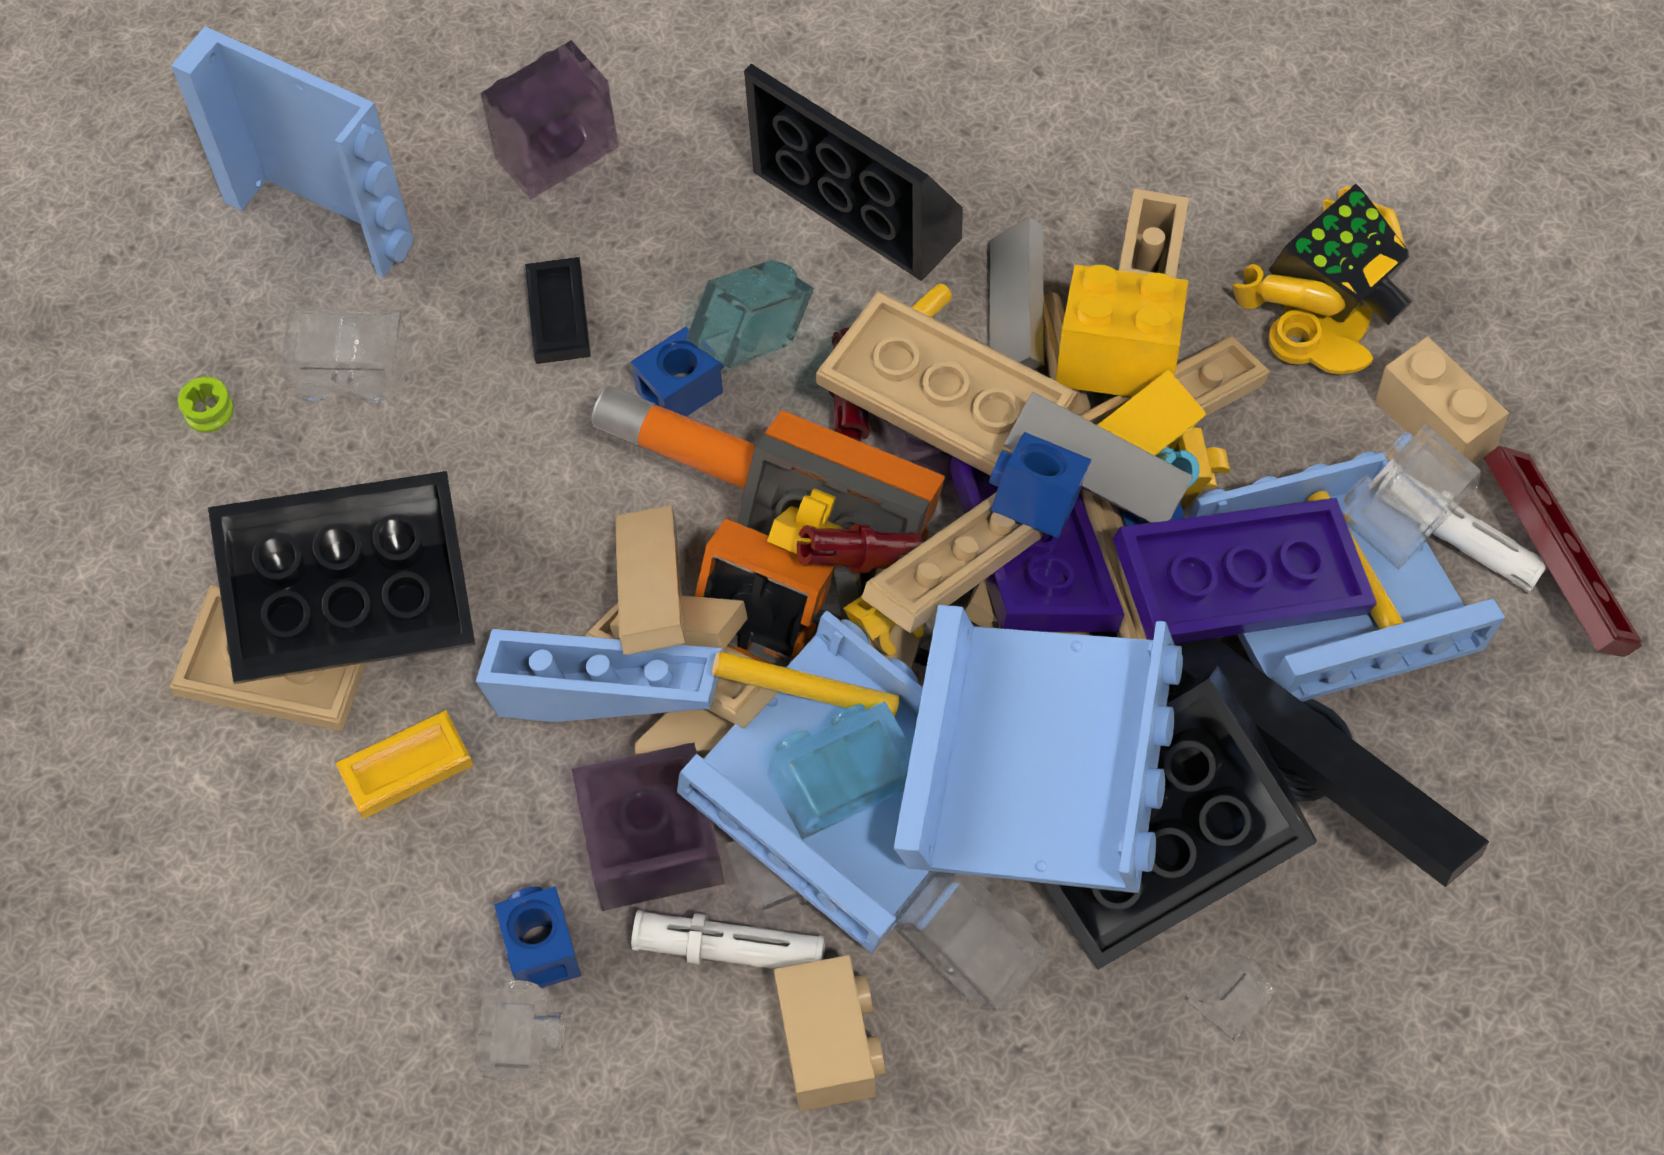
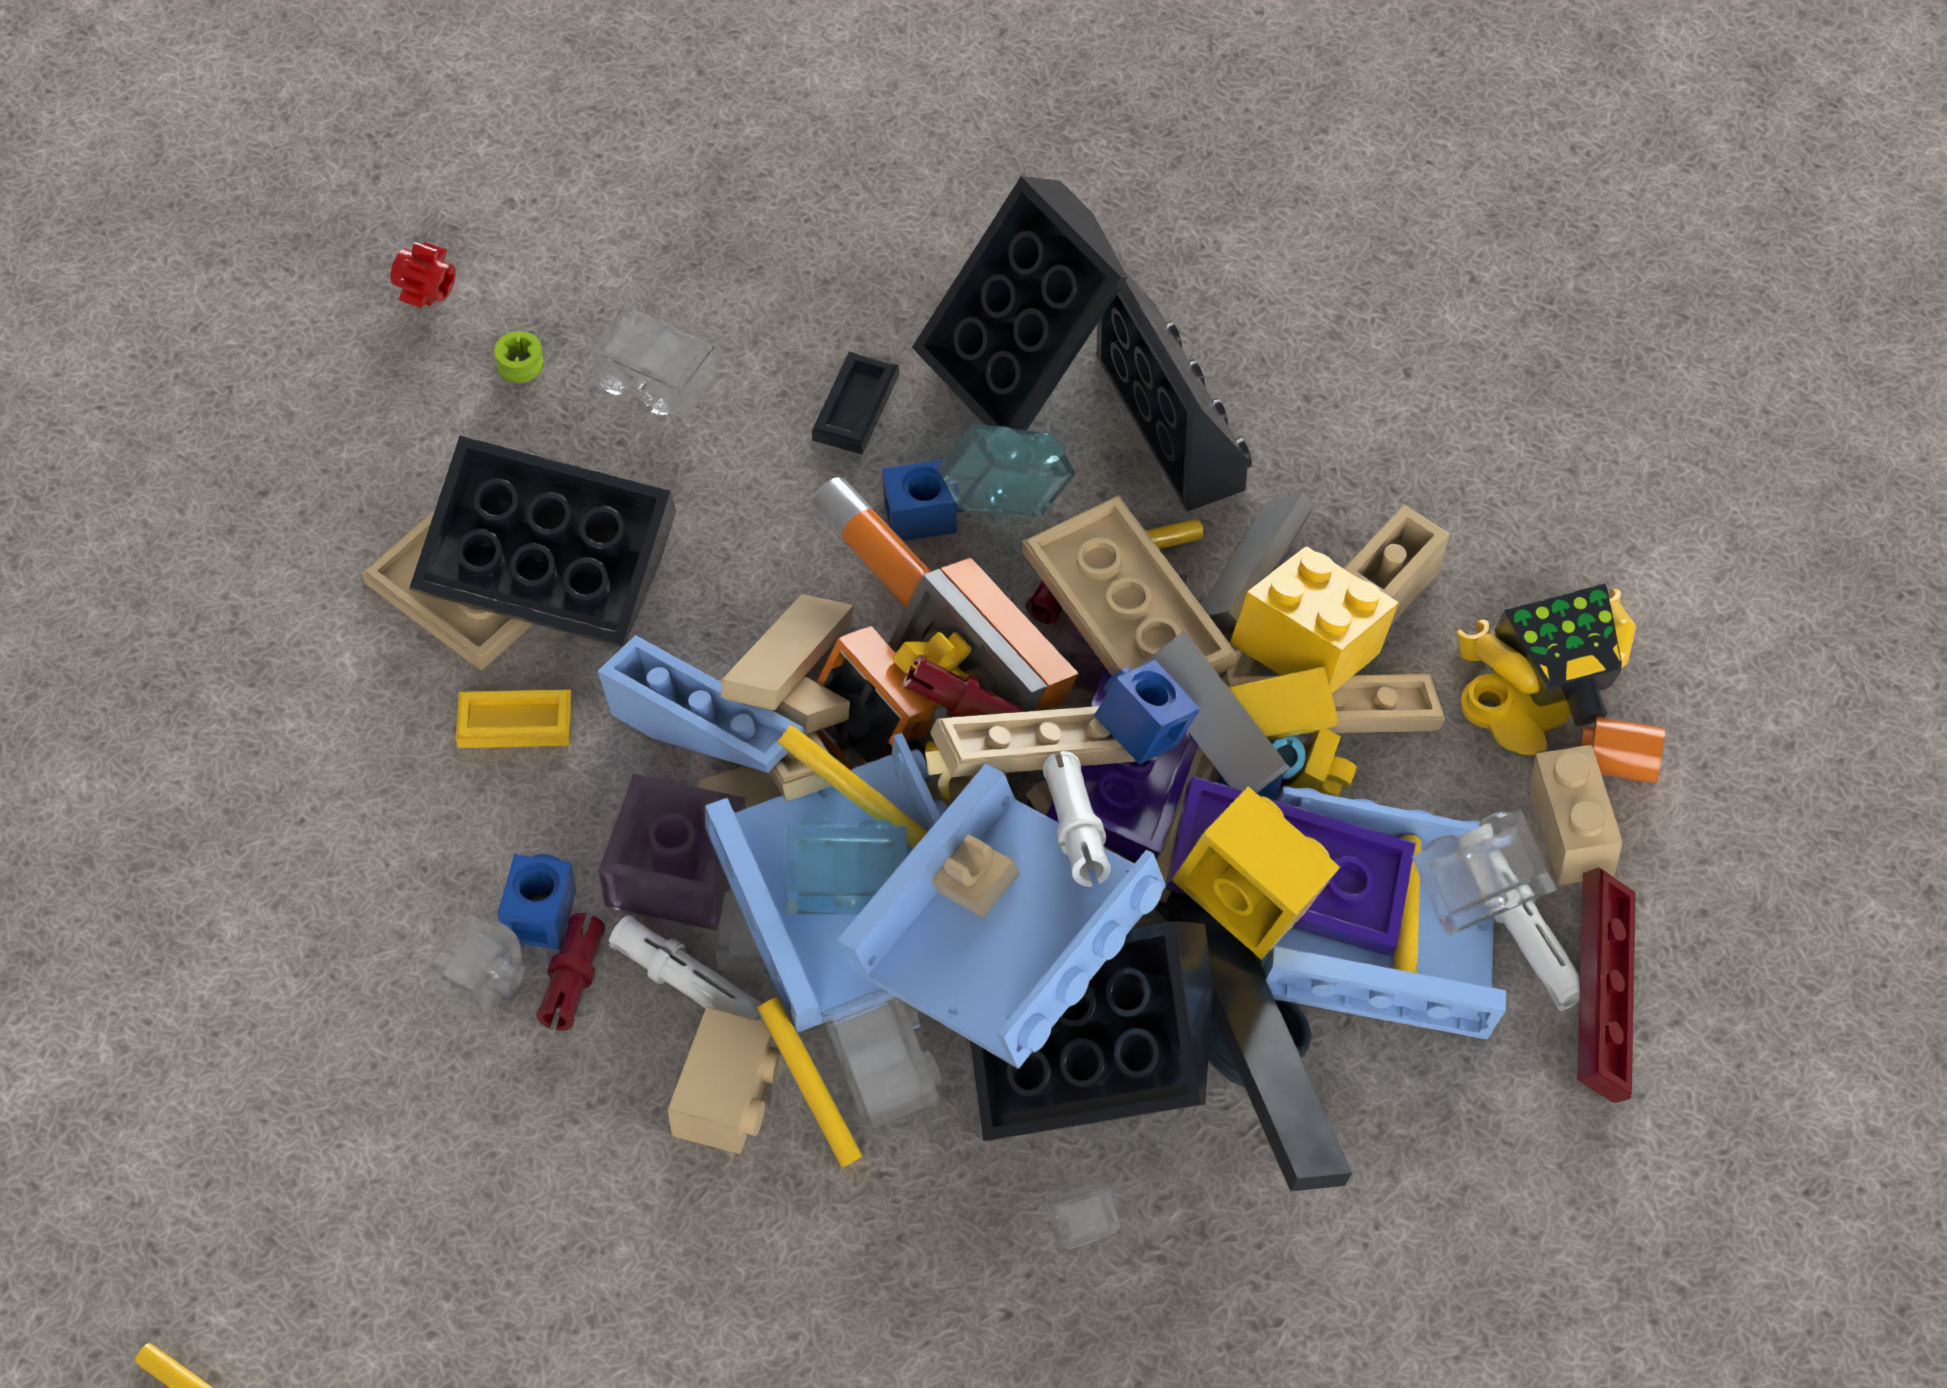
camera: 25 degrees right, 5 degrees down
(66, 364) = (423, 274): none -> red gear
(296, 131) = (689, 144): light blue panel -> none
(550, 119) = (929, 230): clear purple brick -> none
(610, 995) = (571, 972): none -> dark red pin
(690, 149) = (1022, 304): none -> black slope
(912, 994) = (809, 1081): none -> yellow bar
(984, 720) = (975, 876): none -> tan tile
(1067, 631) = (1079, 830): none -> white pin
(1248, 594) = (1255, 872): none -> yellow brick
(1452, 323) = (1626, 748): none -> orange brick

